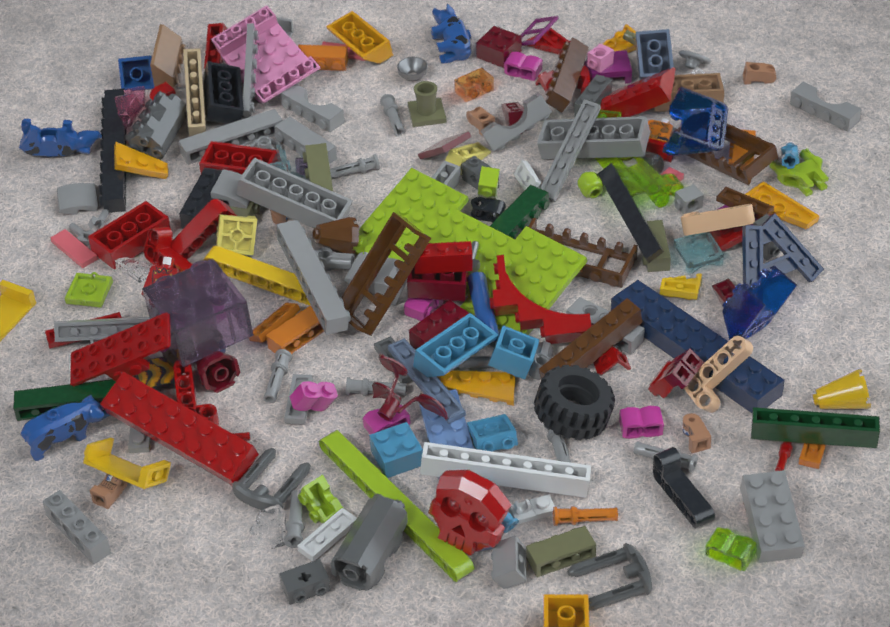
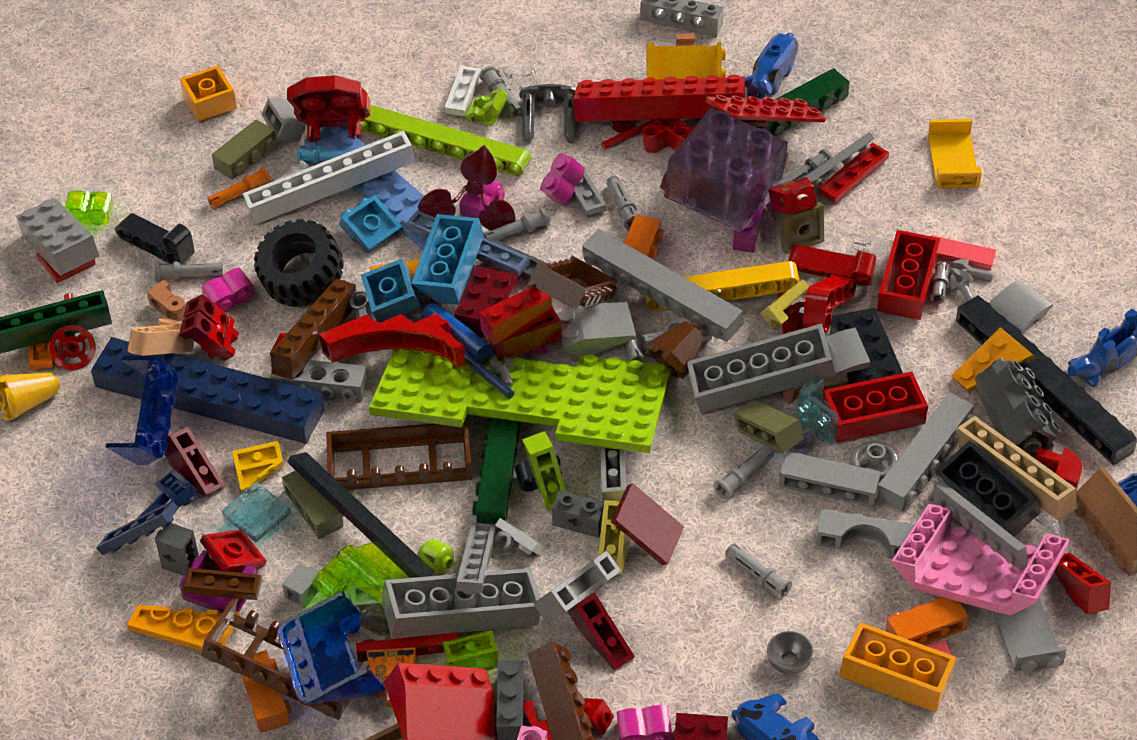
camera: 150 degrees right, 5 degrees up
(88, 290) = (893, 211): lime plate -> none
(130, 104) = (1070, 419): clear pink windscreen -> none
(275, 320) = (672, 245): orange plate -> none
(305, 582) = (452, 48): dark grey brick -> none
(370, 542) = (413, 77): dark grey brick -> none
(396, 450) = (444, 171): dark azure brick -> none
(427, 108) = (721, 595): olive plant -> none
(474, 84) = (686, 675): clear orange brick -> none
(479, 118) = (638, 605): nougat leg -> none
(486, 260) = (488, 376): none -> dark blue bar
(636, 567) = (171, 164): dark grey piece -> none
(717, 219) = (243, 534): light nougat beam -> none
(790, 155) = (189, 674): dark azure piece -> none
(803, 174) = (170, 689): lime connector -> none

